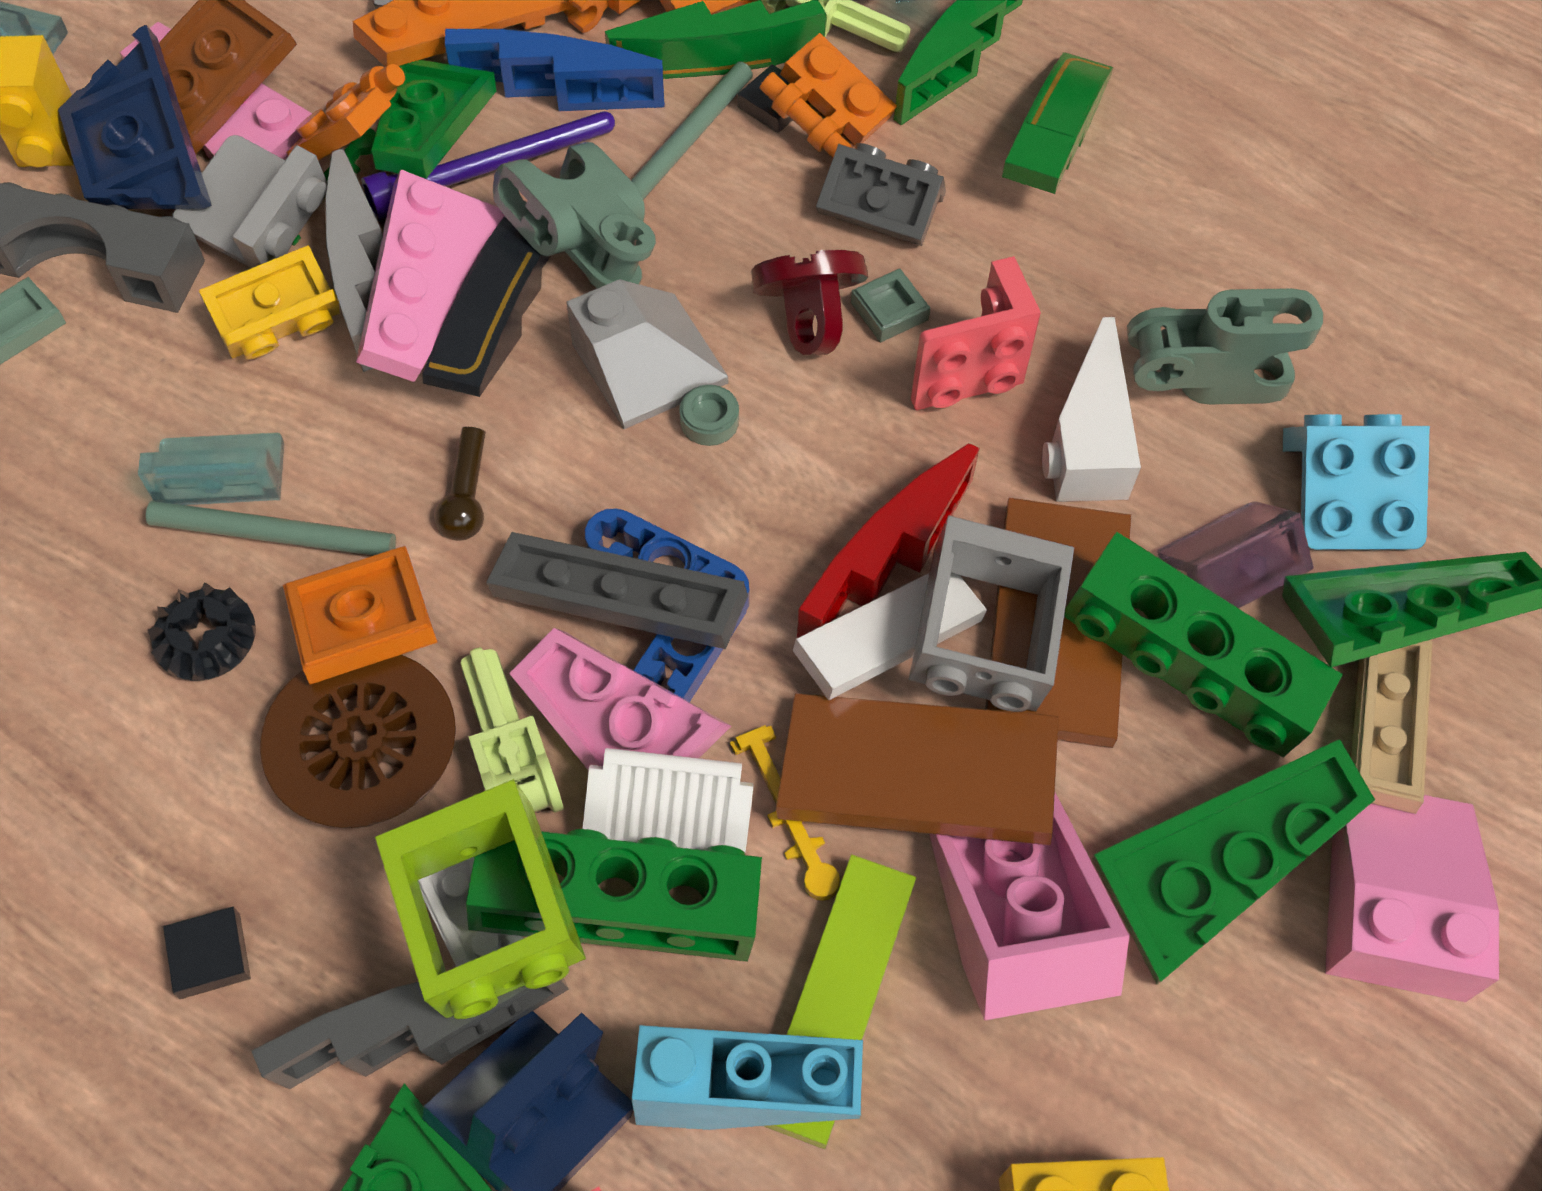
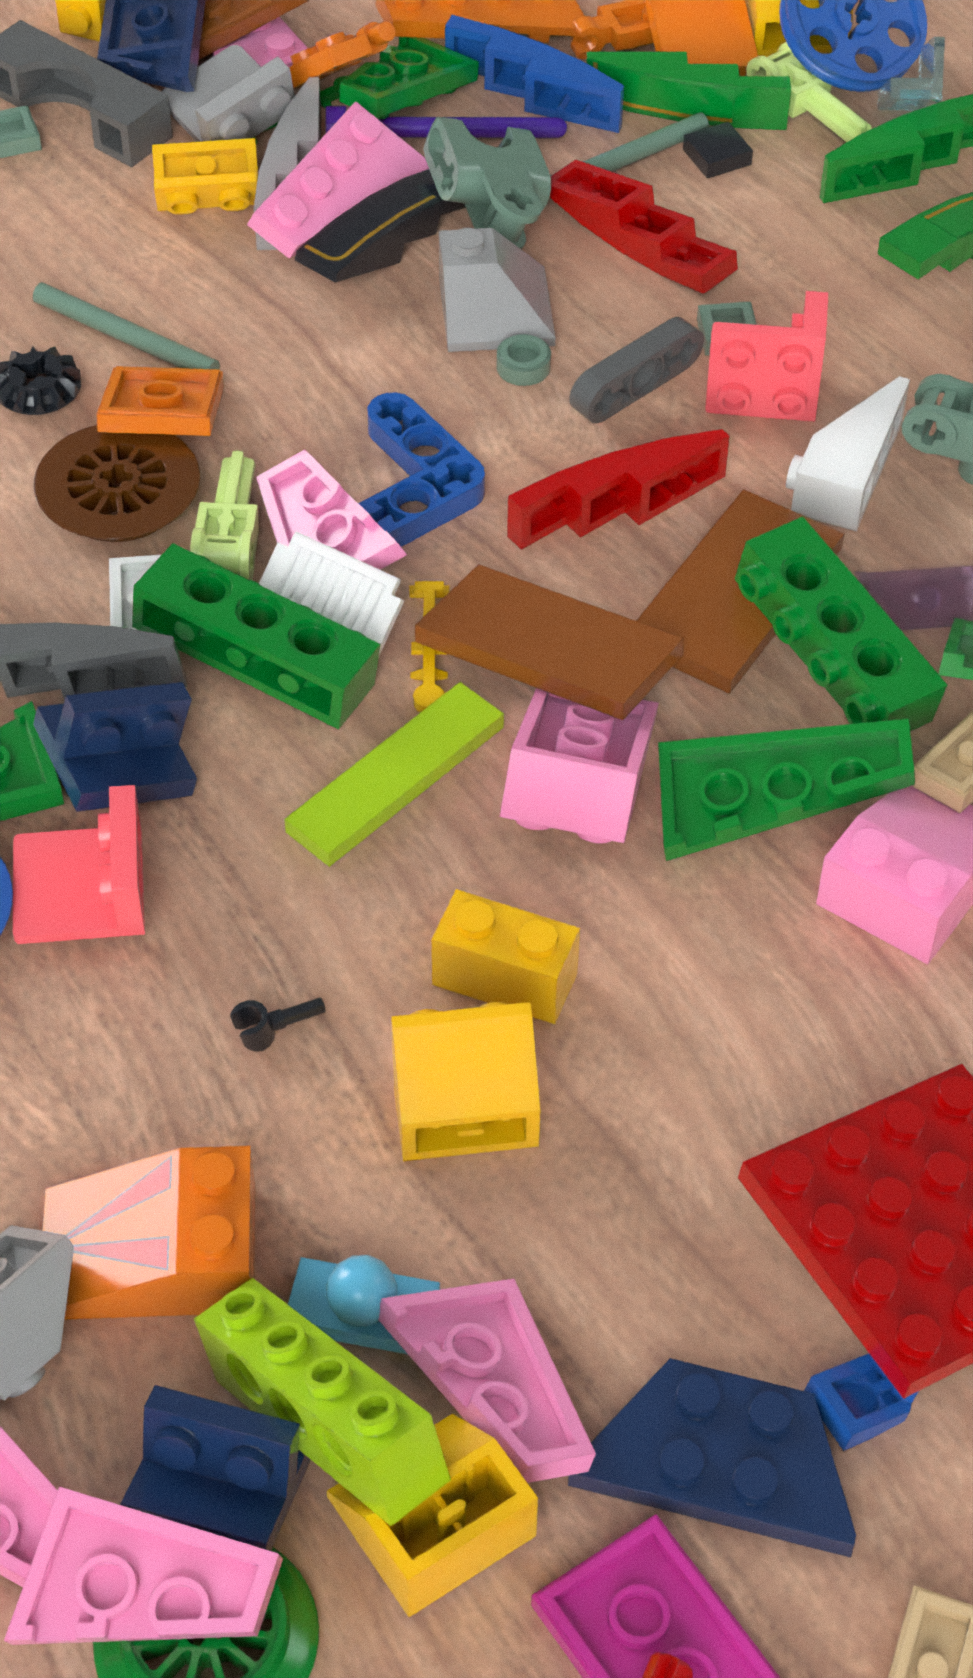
camera: 25 degrees right, 10 degrees down
(214, 469) = (102, 277): clear light blue panel -> none
(451, 838) = (143, 532): lime window -> none
(460, 514) = (280, 365): dark brown bar -> none
(618, 589) = (372, 444): dark grey plate -> none
(732, 211) = (628, 220): none -> red slope
(743, 1079) = (276, 777): medium azure slope -> none
(811, 291) = (656, 283): dark red tile -> none
(833, 392) = (636, 369): none -> dark grey beam
(835, 89) = (772, 152): orange plate -> none
(881, 192) = (768, 240): dark grey bracket -> none
(881, 634) = (583, 546): white tile -> none
(1008, 561) = (671, 499): light grey window -> none

